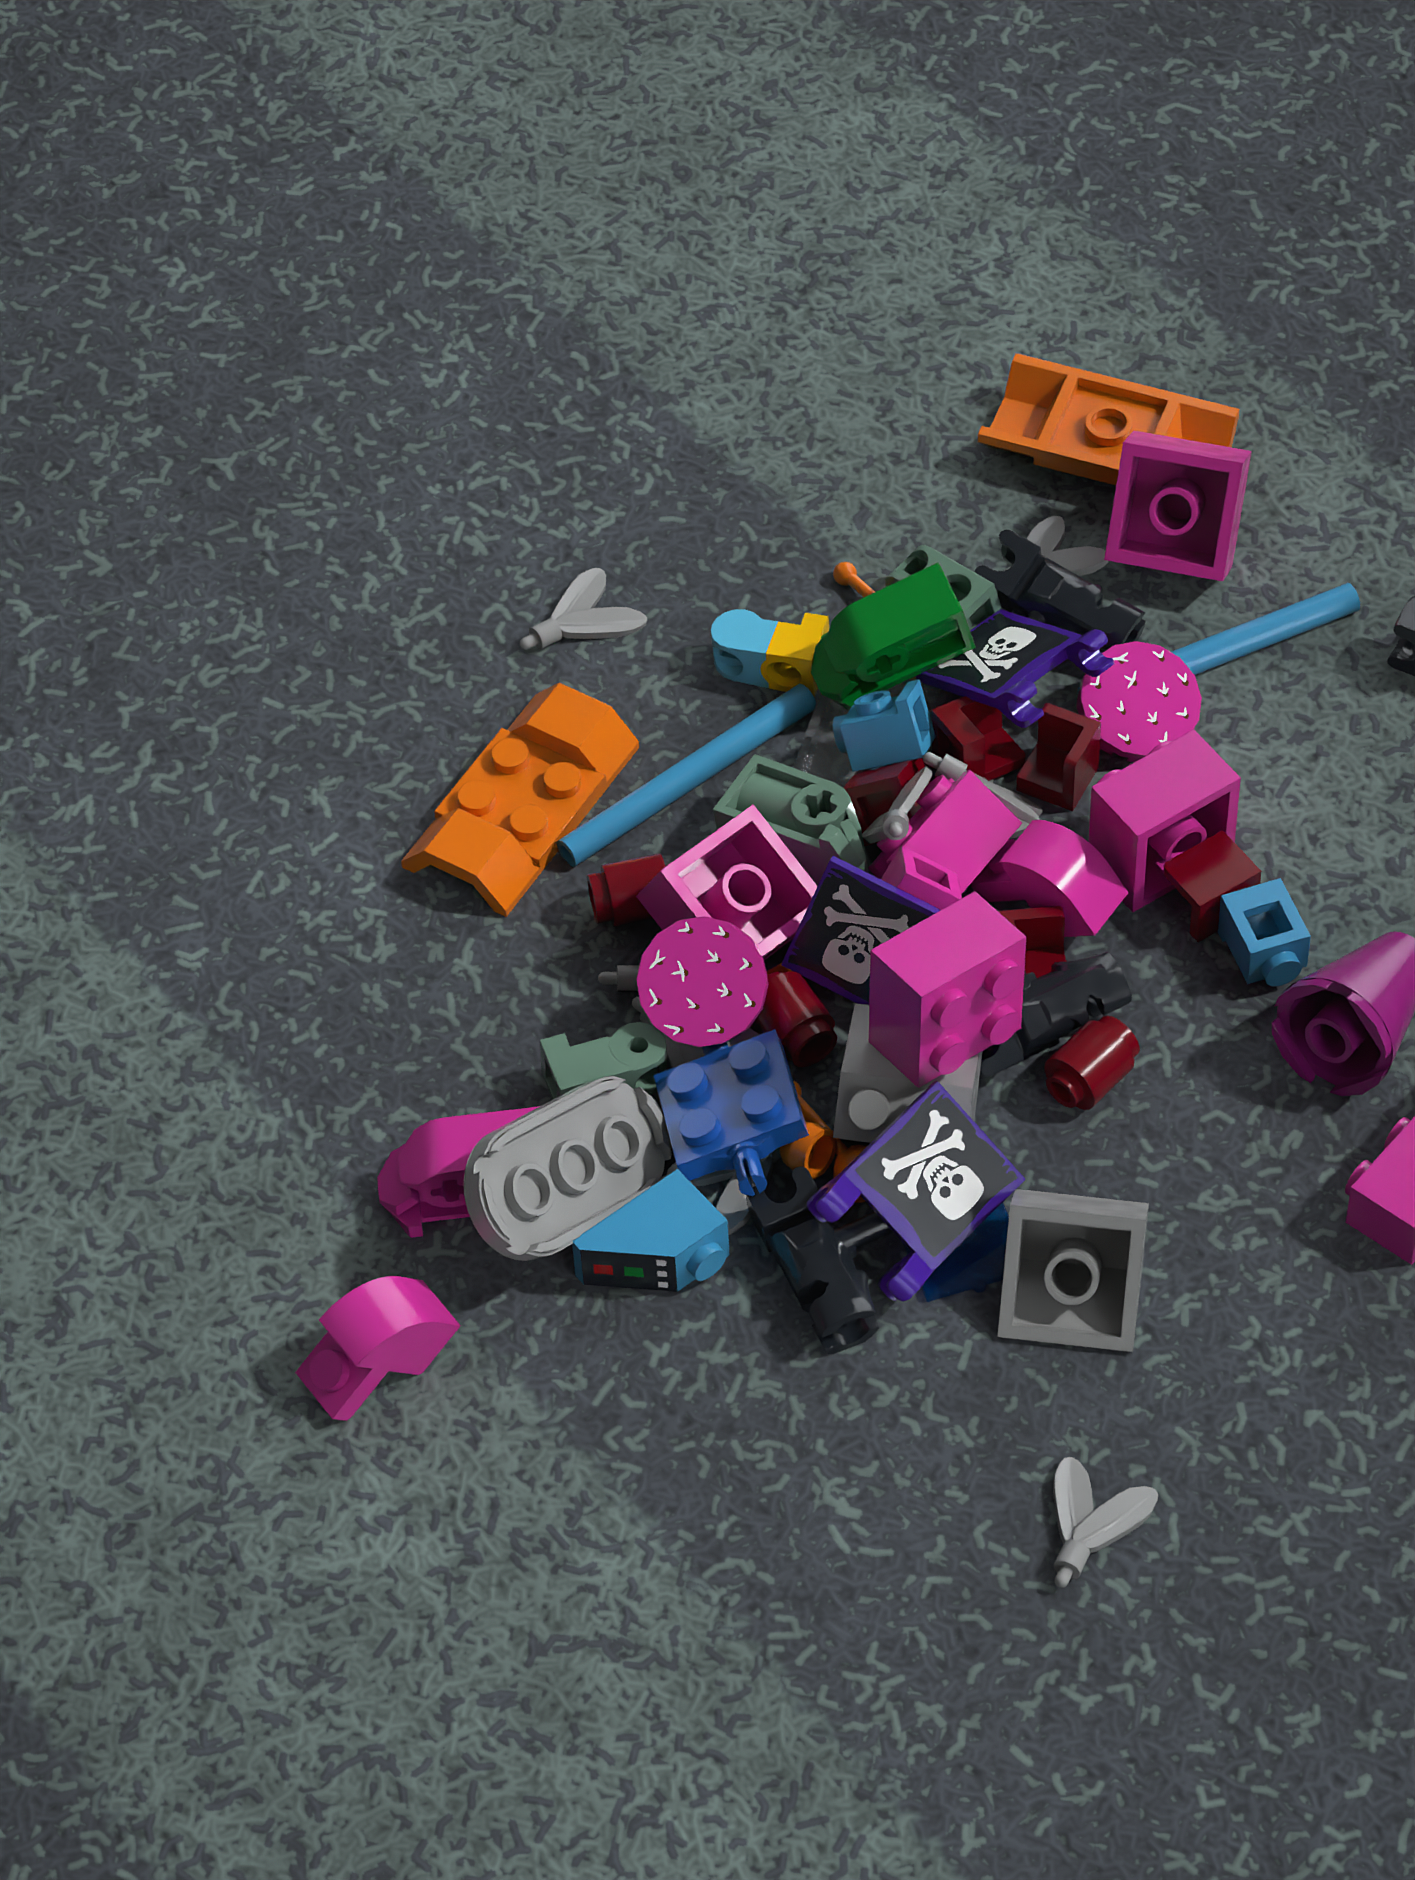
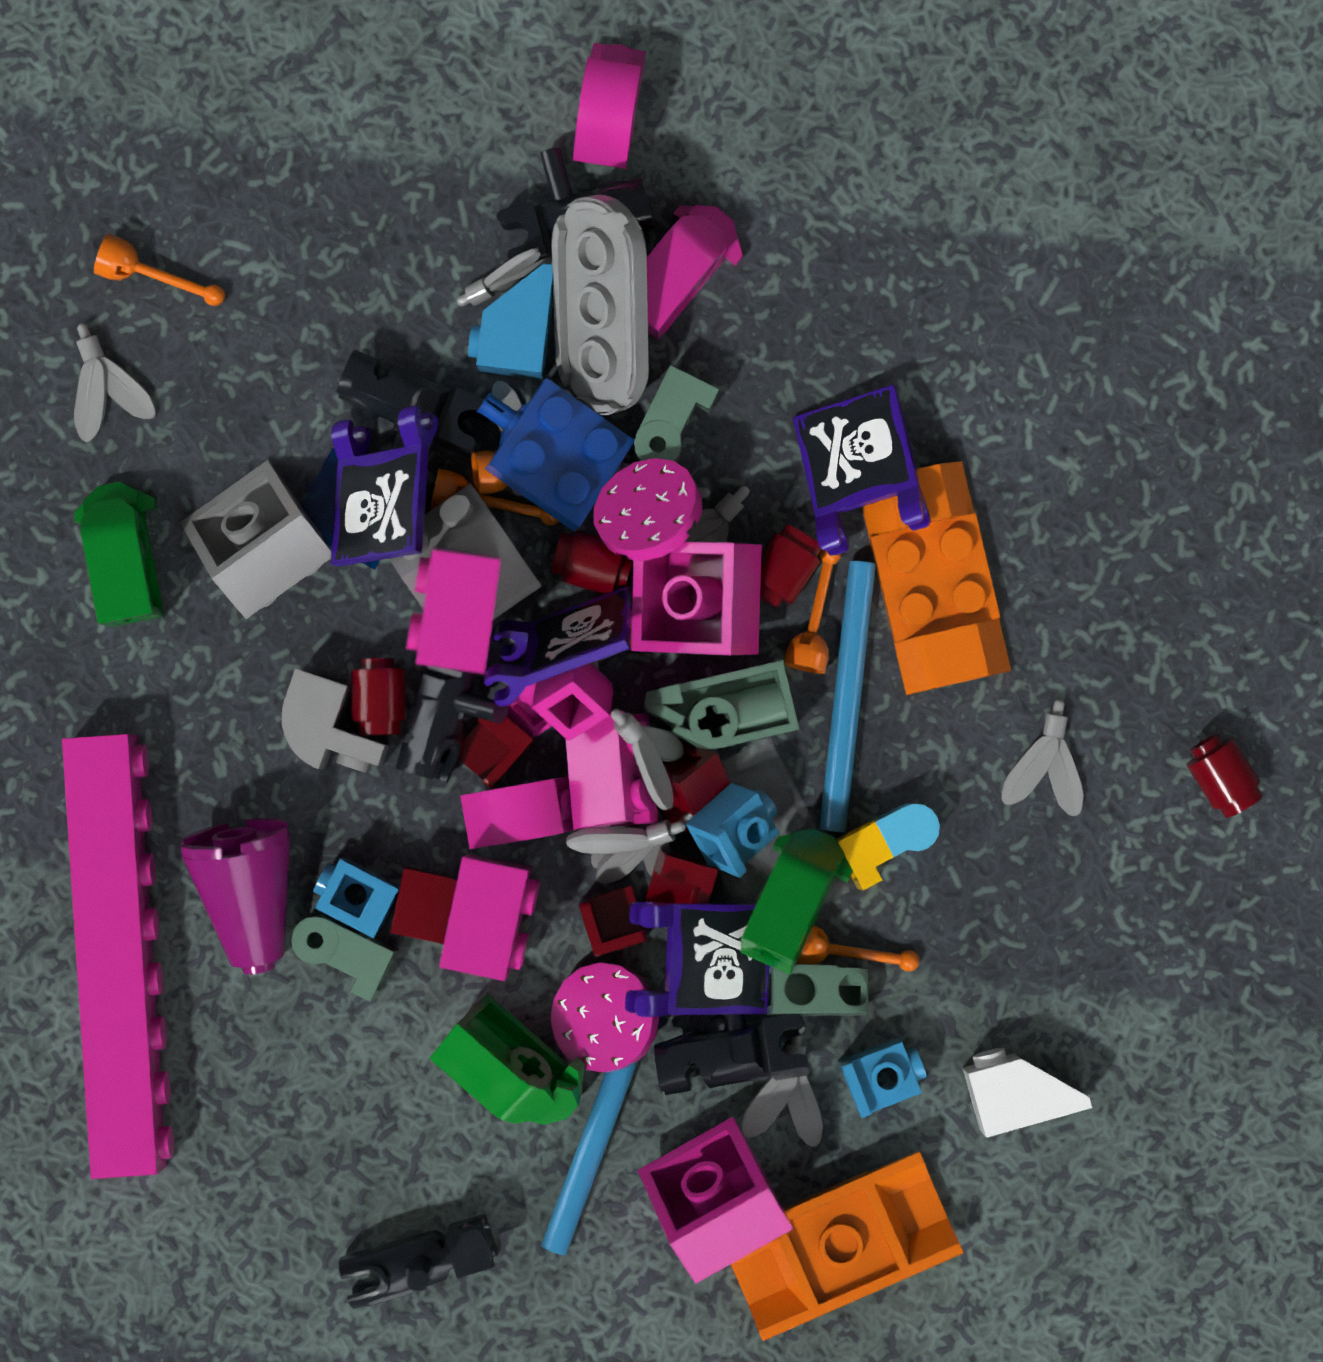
camera: 130 degrees right, 35 degrees up
(456, 498) = (1224, 775): none -> dark red brick
(484, 912) = (857, 457): none -> flag
(510, 1291) = (541, 218): none -> black piece
(611, 1282) = (502, 278): none -> light grey piece
(682, 823) = (808, 649): none -> orange hinge
(859, 422) = (1017, 1093): none -> white slope
(953, 510) = (862, 1070): none -> dark azure brick
(965, 1606) = (120, 260): none -> orange hinge
(1166, 1083) = (313, 720): none -> light grey brick
(1216, 1348) = (120, 554): none -> green piece
(1259, 722) = (509, 1067): none -> green piece
(1313, 886) = (335, 943): none -> sand green leg

